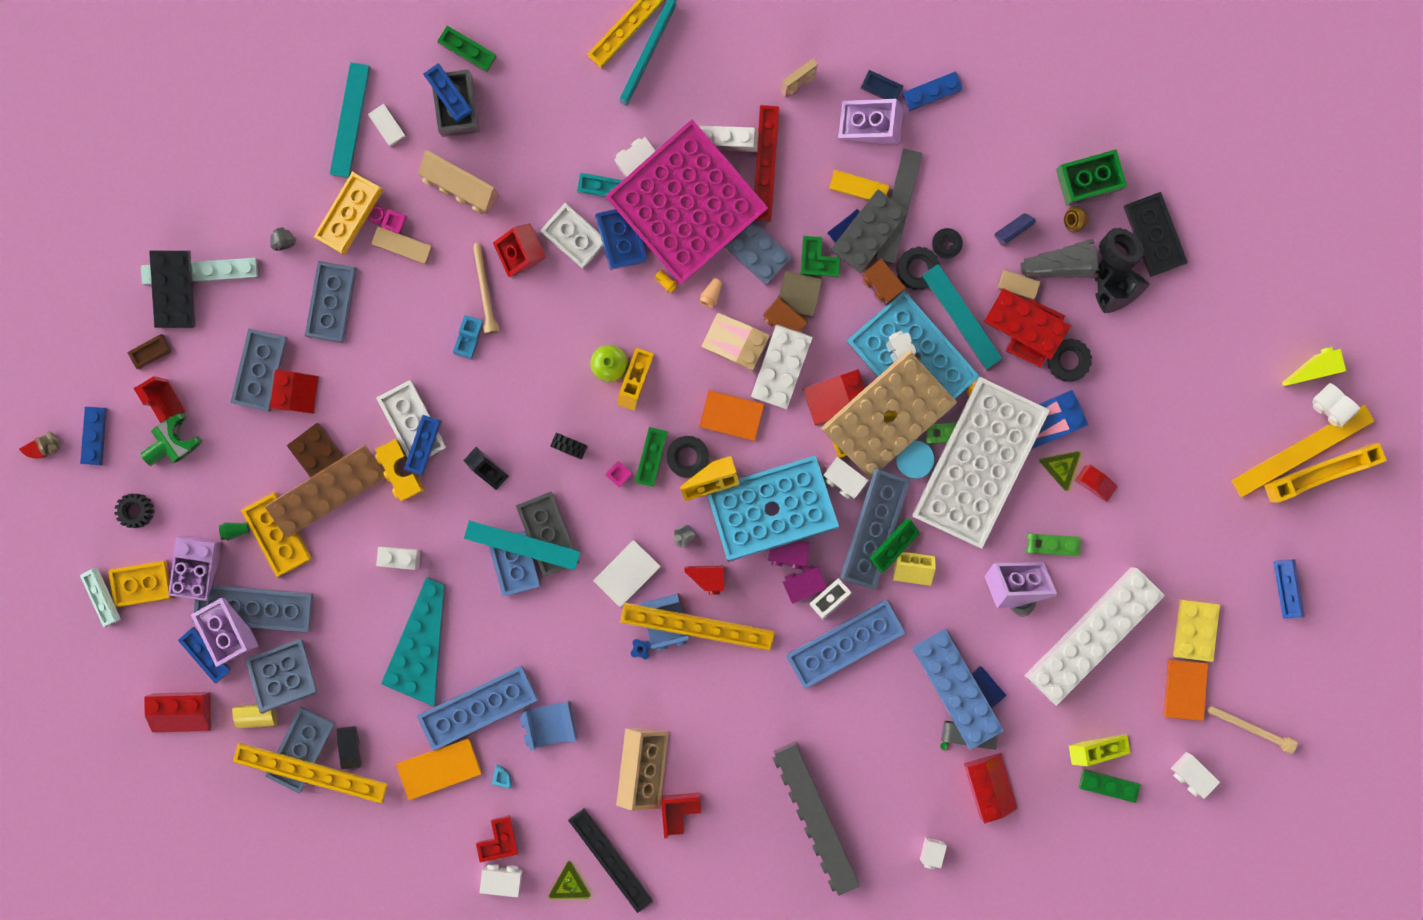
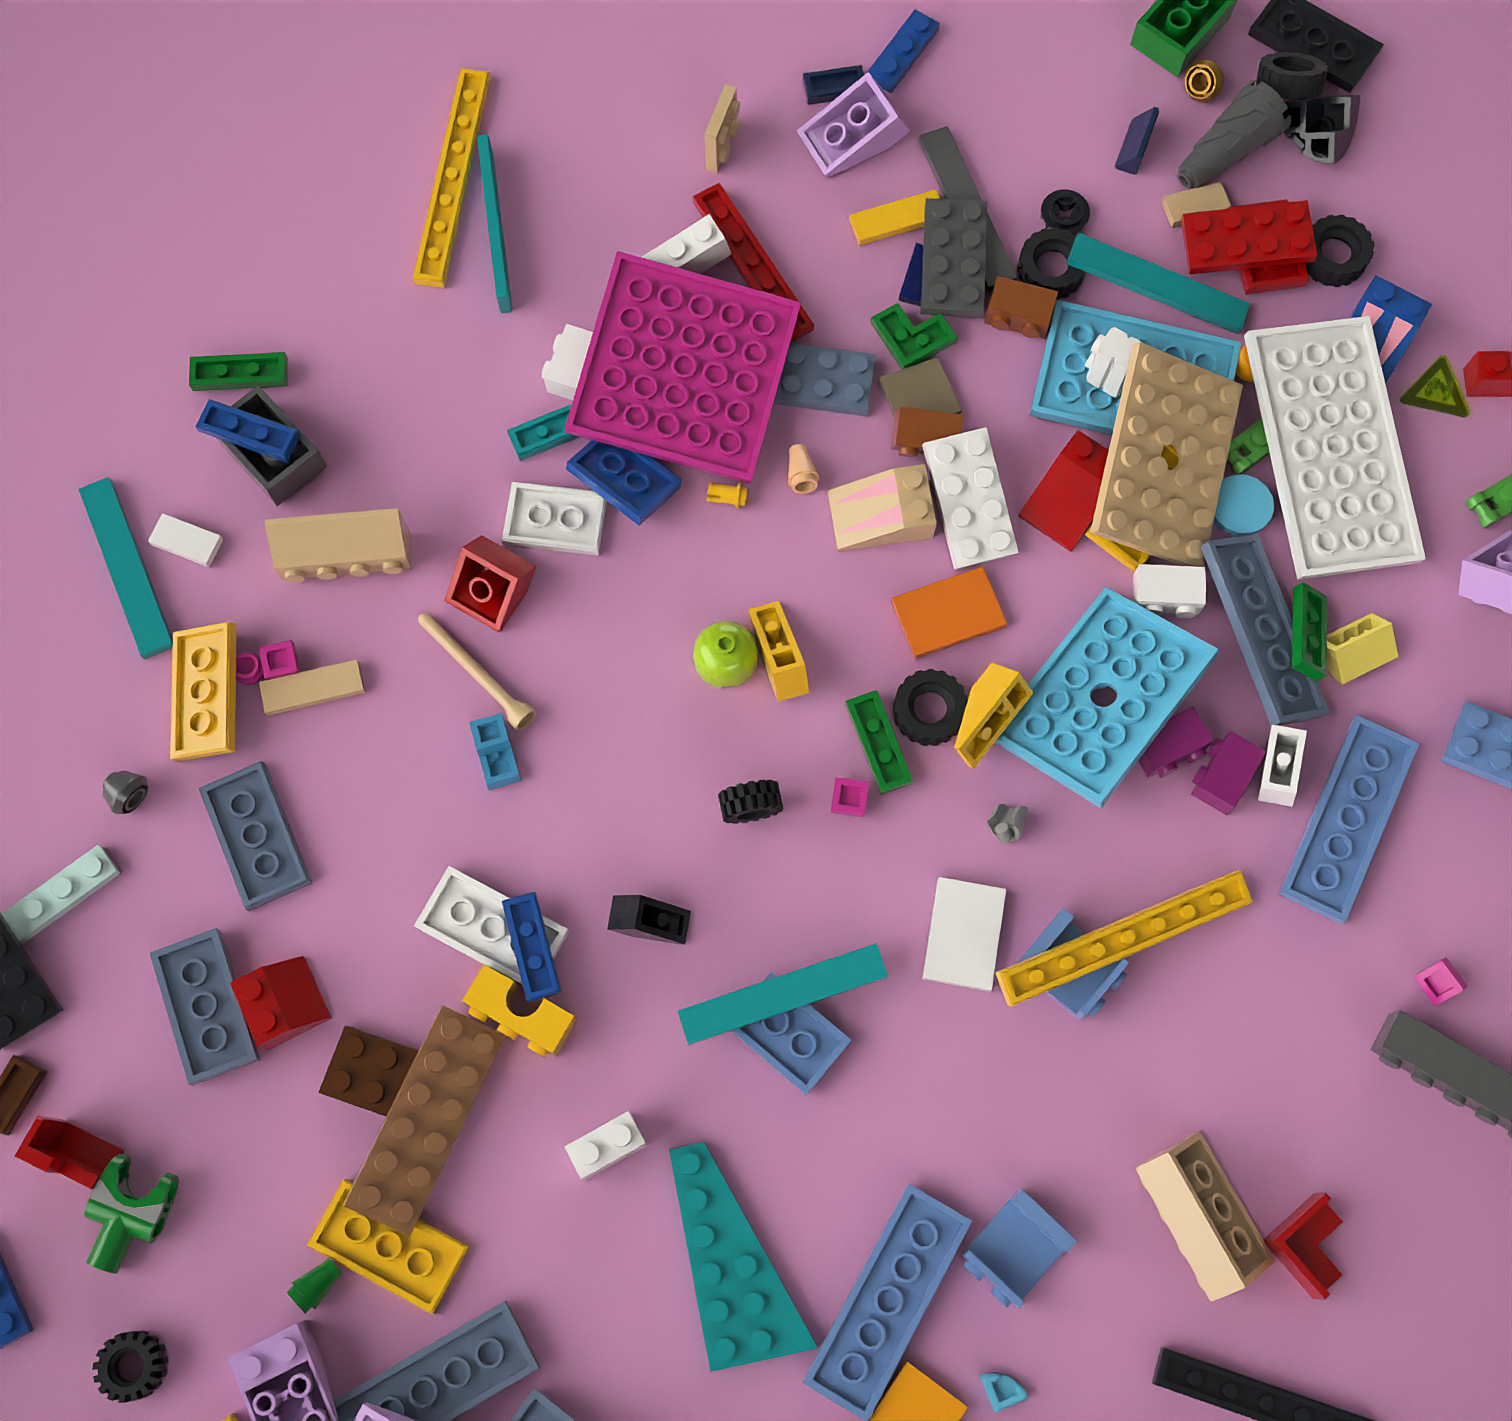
camera: 30 degrees left, 15 degrees down
(544, 522) = (789, 938): dark grey plate -> none
(636, 652) = (1064, 1041): blue plate -> none
(707, 577) = (1089, 853): red slope -> none
(827, 744) = (1440, 981): none -> dark pink plate

